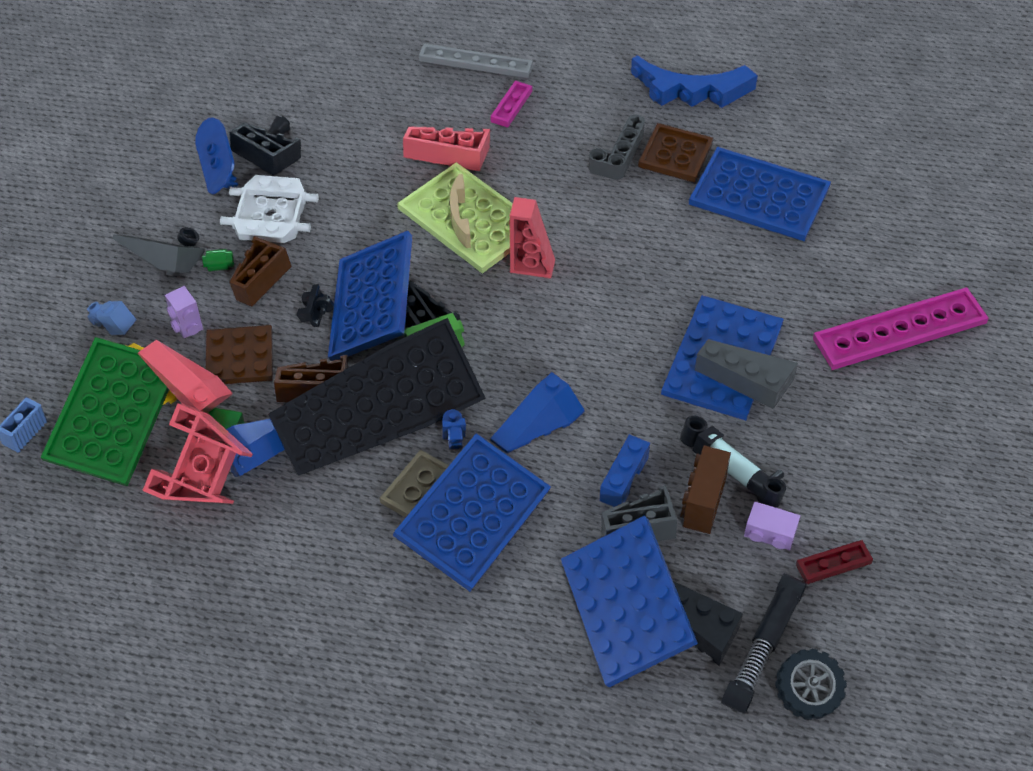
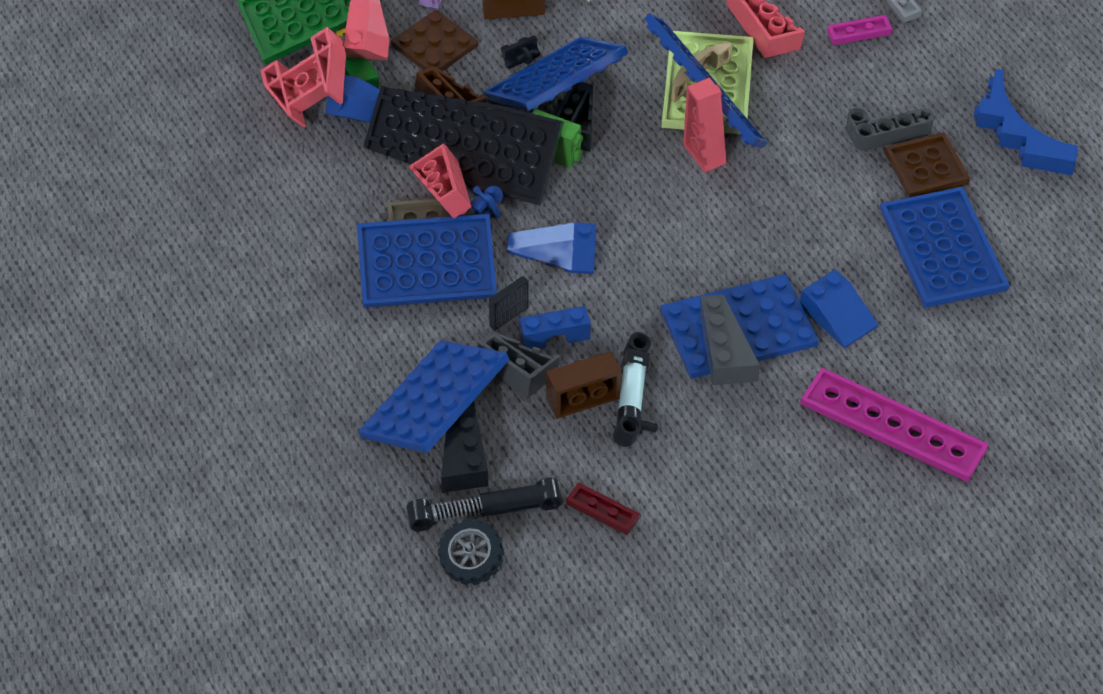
camera: 50 degrees right, 0 degrees up
(404, 440) = (444, 179): none -> coral wedge
(478, 208) = (697, 73): none -> blue plate
(576, 483) = (508, 303): none -> tile
(764, 287) = (838, 308): none -> blue slope
(772, 526) = (596, 449): lavender brick -> none

